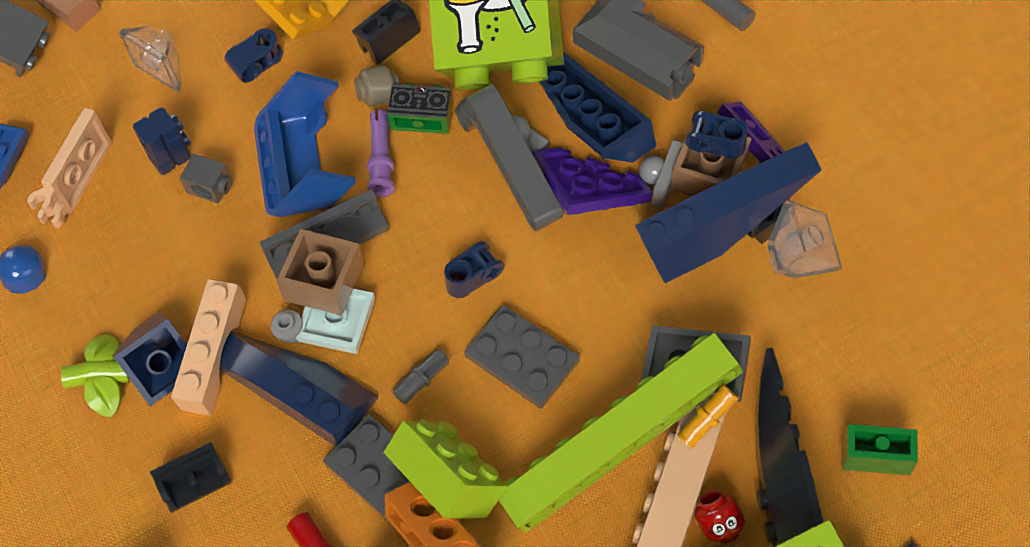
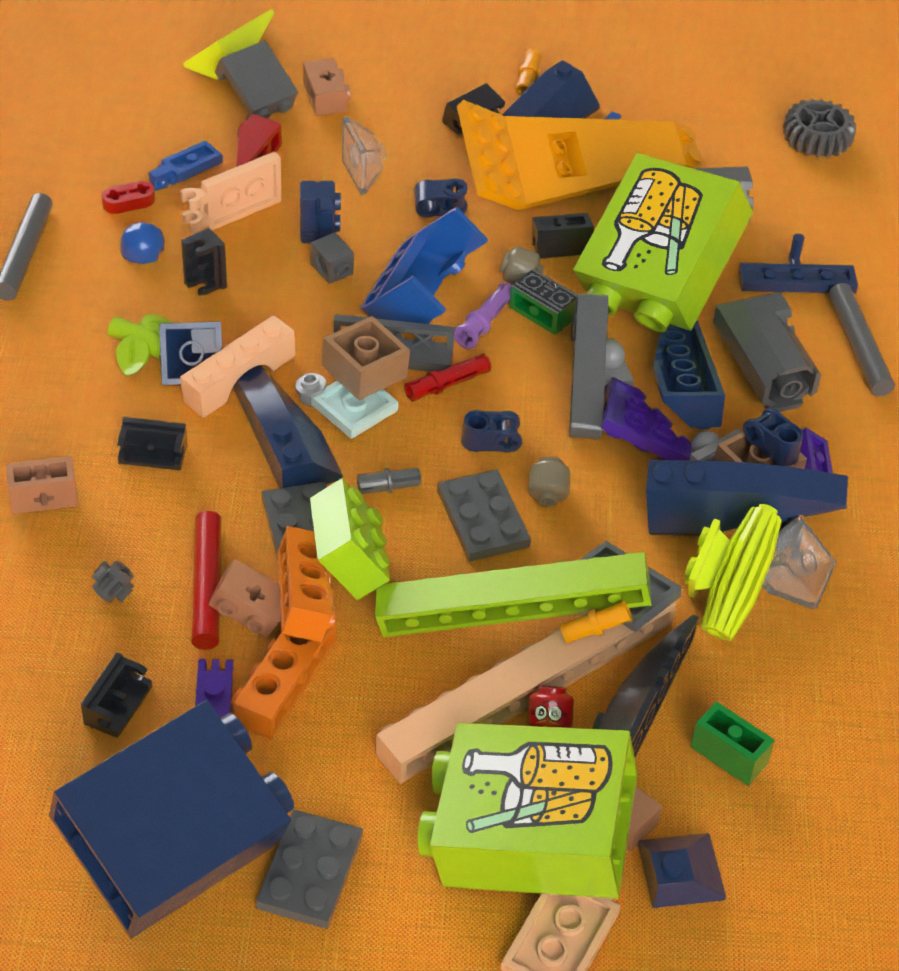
camera: 25 degrees right, 15 degrees down
(48, 95) = (257, 138): none -> red slope
(97, 256) = (204, 261): none -> black hinge
(389, 248) = (437, 381): none -> red pin
(555, 289) = (549, 481): none -> dark tan head
(769, 285) = (733, 569): none -> neon yellow plate

